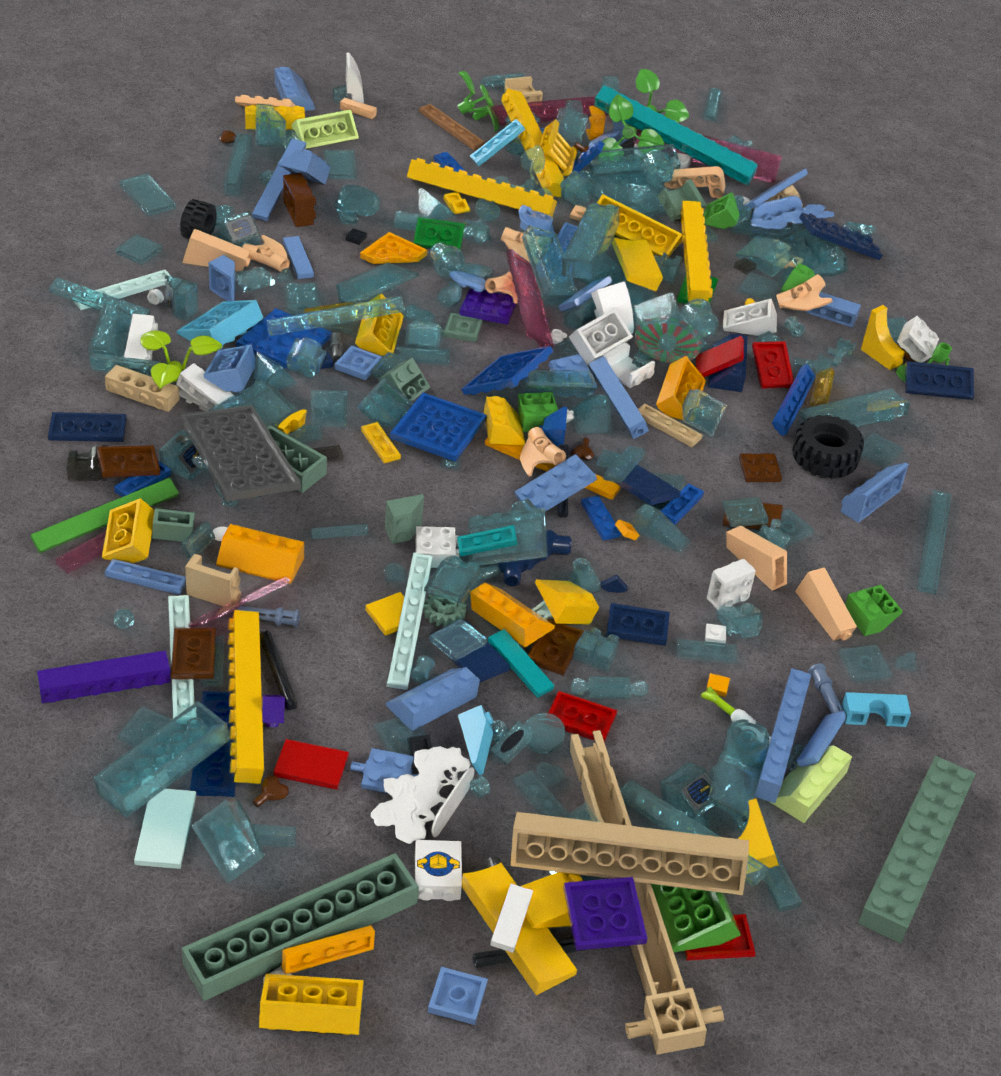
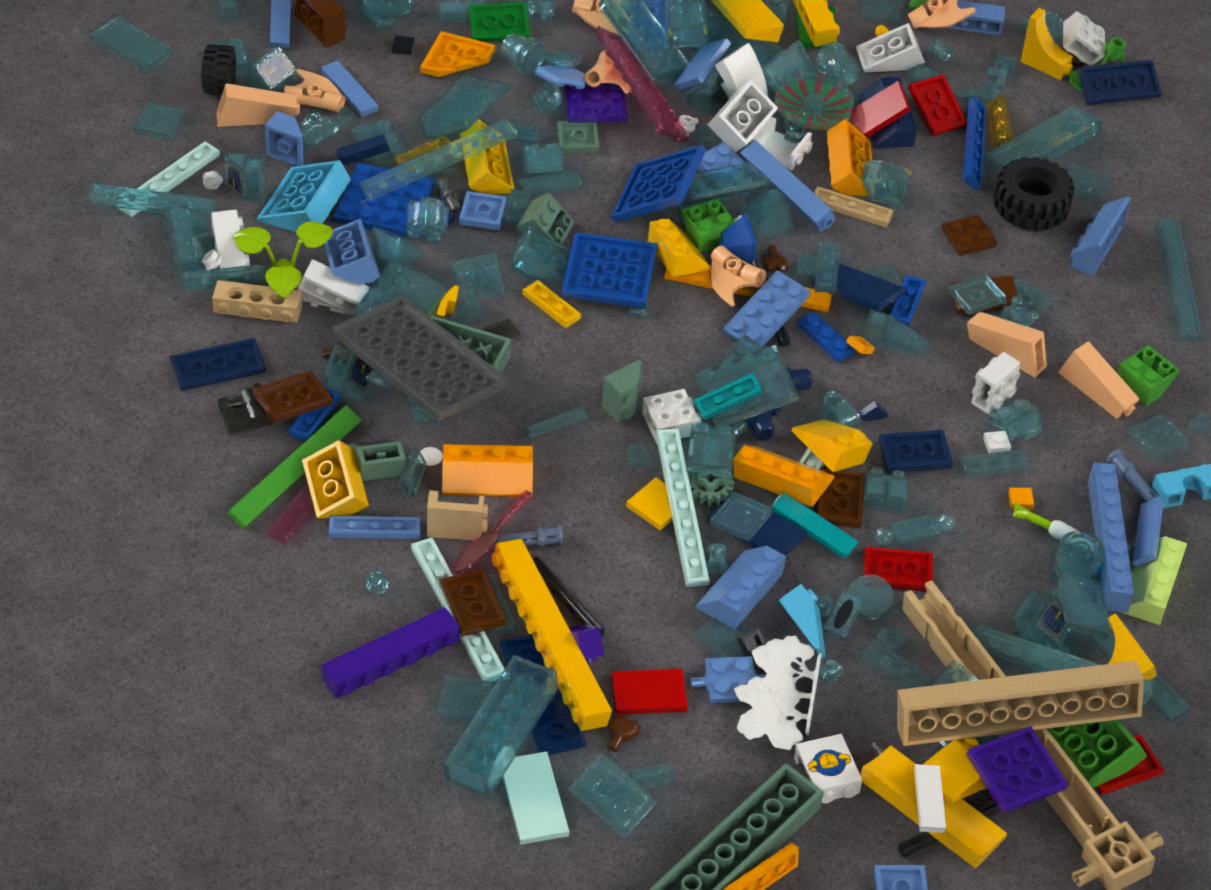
camera: 15 degrees left, 5 degrees up
(118, 348) = (212, 259): none -> white plate
(283, 299) = (363, 149): none -> dark blue piece

